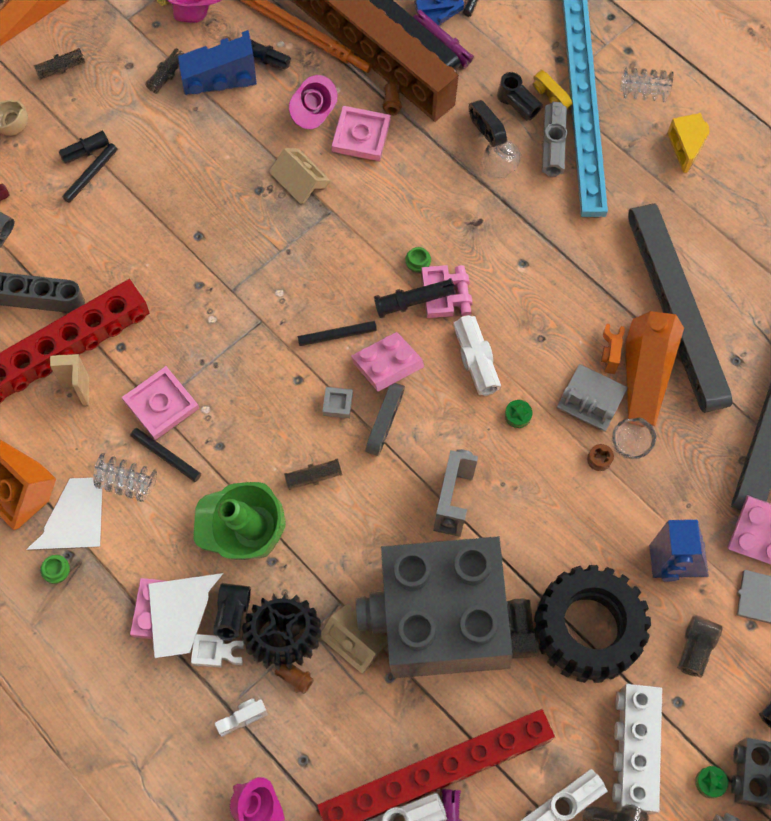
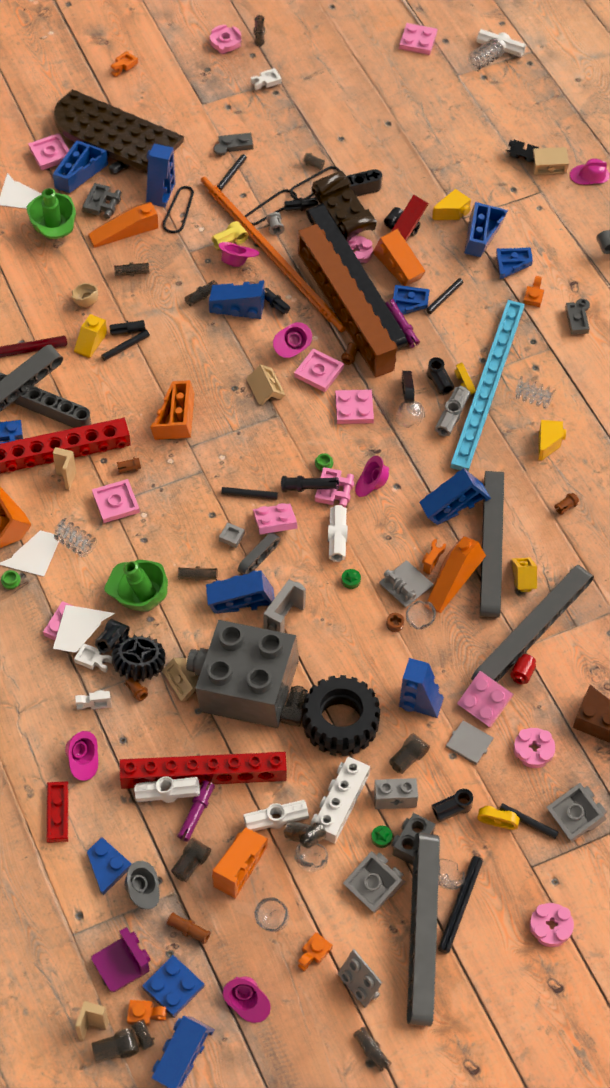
camera: 20 degrees right, 10 degrees down
(38, 173) = (90, 336): none -> yellow slope
(159, 344) = (129, 465): none -> dark orange pin
(165, 454) = (107, 534): black bar -> none
(197, 251) = (176, 413): none -> orange wedge
(382, 485) = (240, 592): none -> blue wedge
(425, 170) = (354, 406): none -> bright pink plate
(490, 261) = (373, 476): none -> dark pink piece
(608, 258) = (452, 496): none -> blue wedge
(708, 713) = (395, 793): none -> light grey brick
(738, 334) = (524, 574): none -> yellow slope
(748, 217) = (570, 501): none -> dark orange pin

